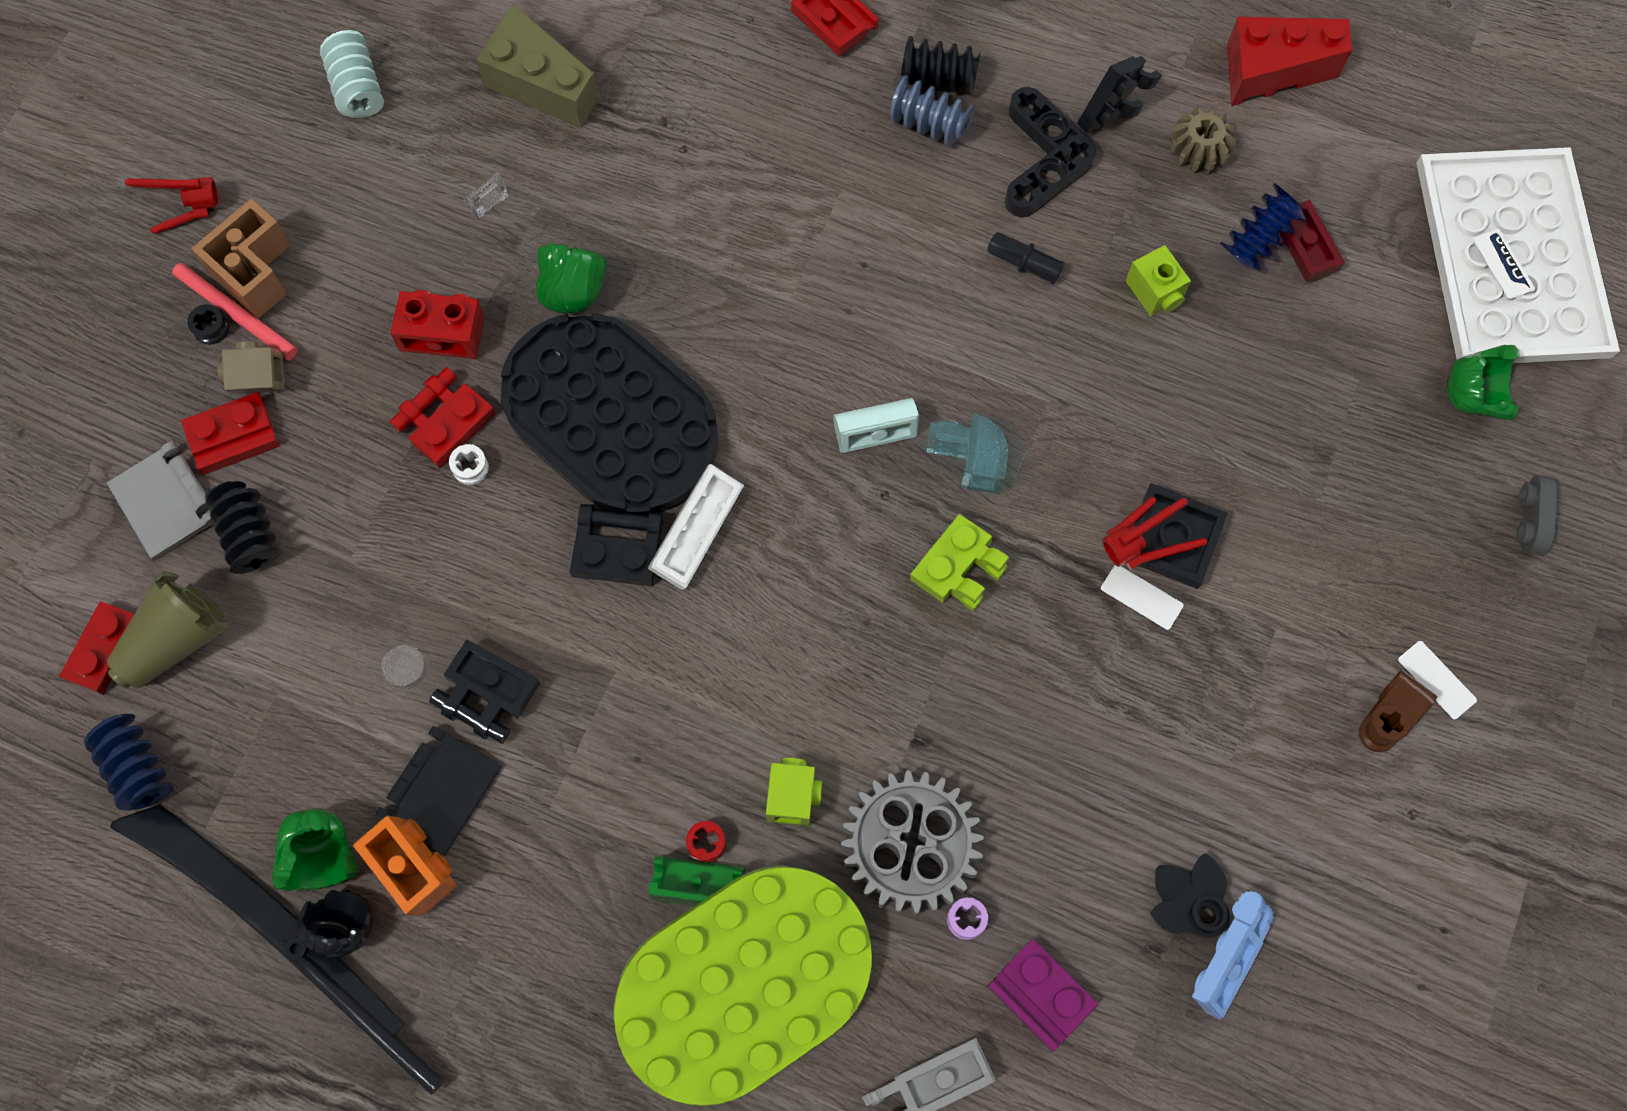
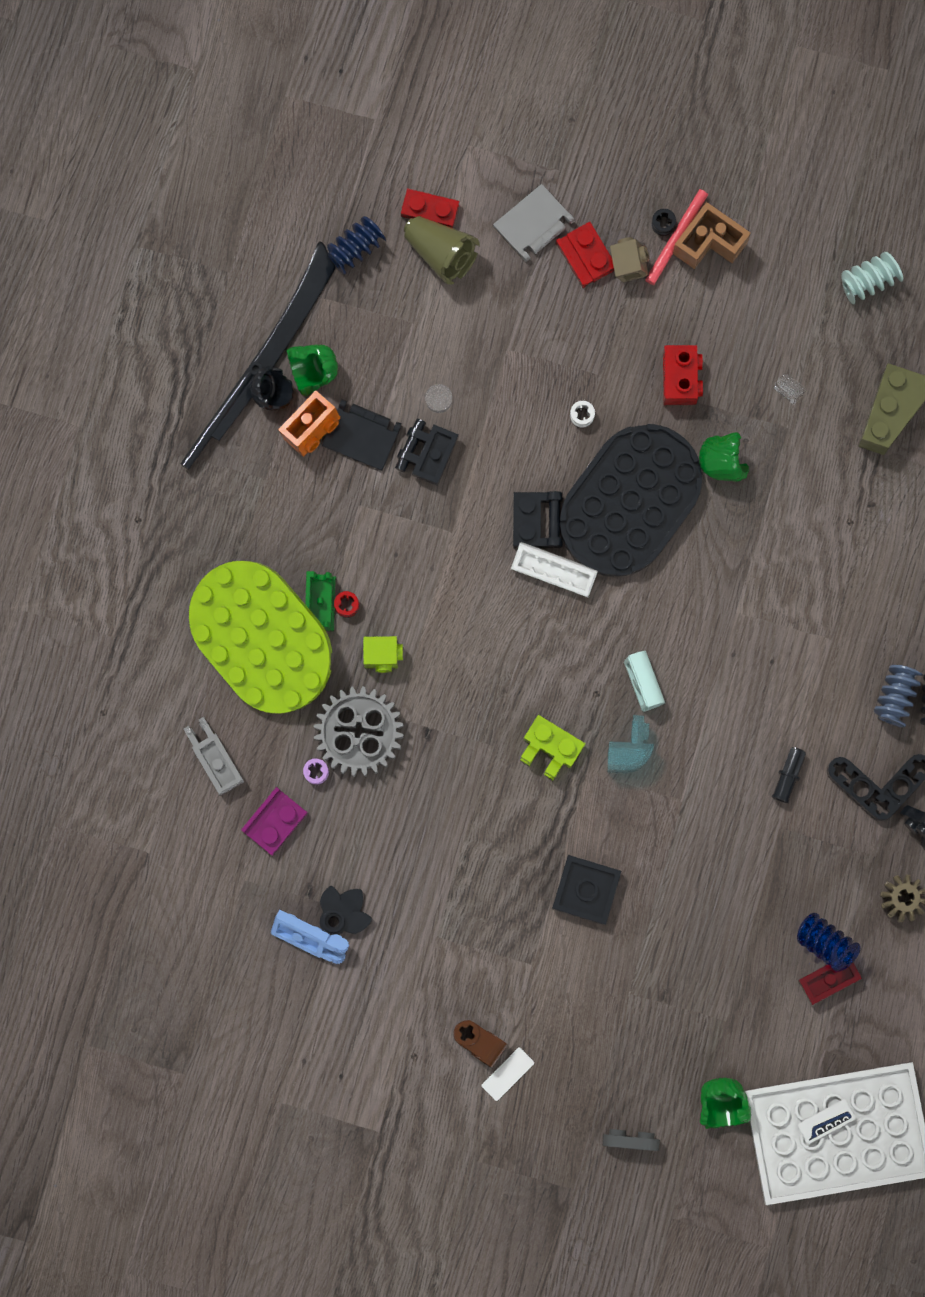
camera: 90 degrees right, 10 degrees up
(195, 193) = (761, 193): red plant -> none
(241, 526) = (517, 278): black piece -> none
(450, 424) = (611, 397): red plate -> none
(1125, 543) = (571, 853): red plant -> none
(1142, 596) = (543, 872): white sticker -> none
(1158, 281) = (779, 870): lime brick -> none

